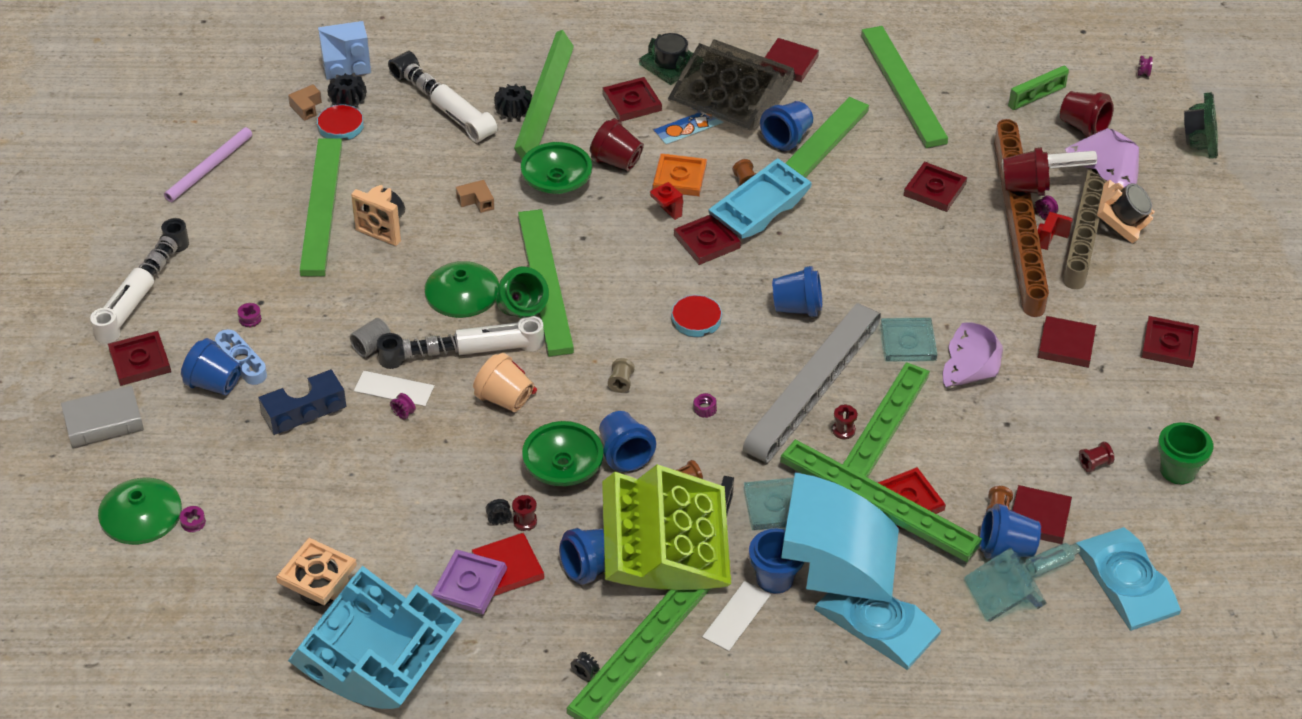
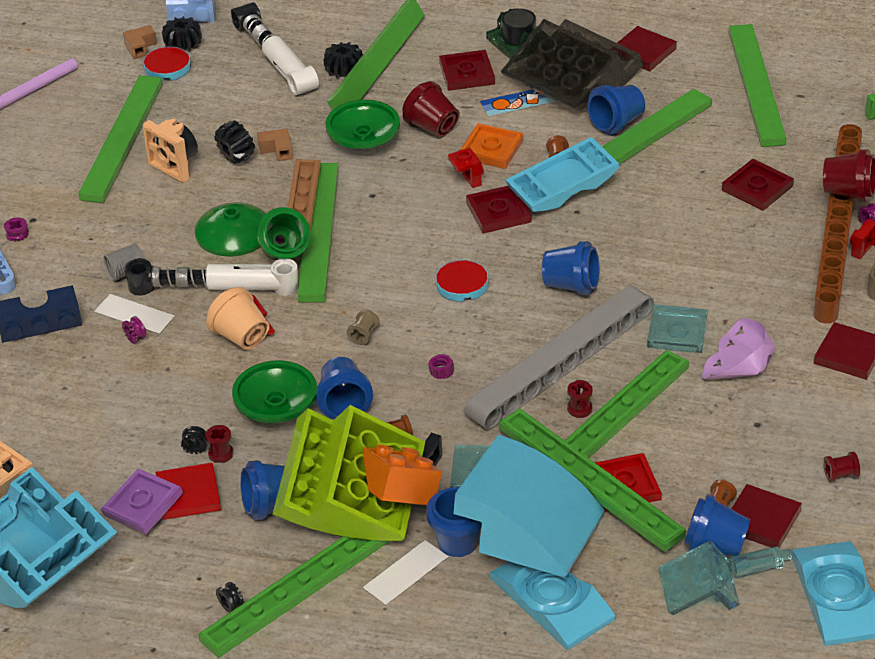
camera: 15 degrees right, 5 degrees down
(438, 199) = (234, 142): none -> black gear
(520, 239) = (304, 187): none -> medium nougat tile
(718, 525) = (400, 475): none -> orange slope

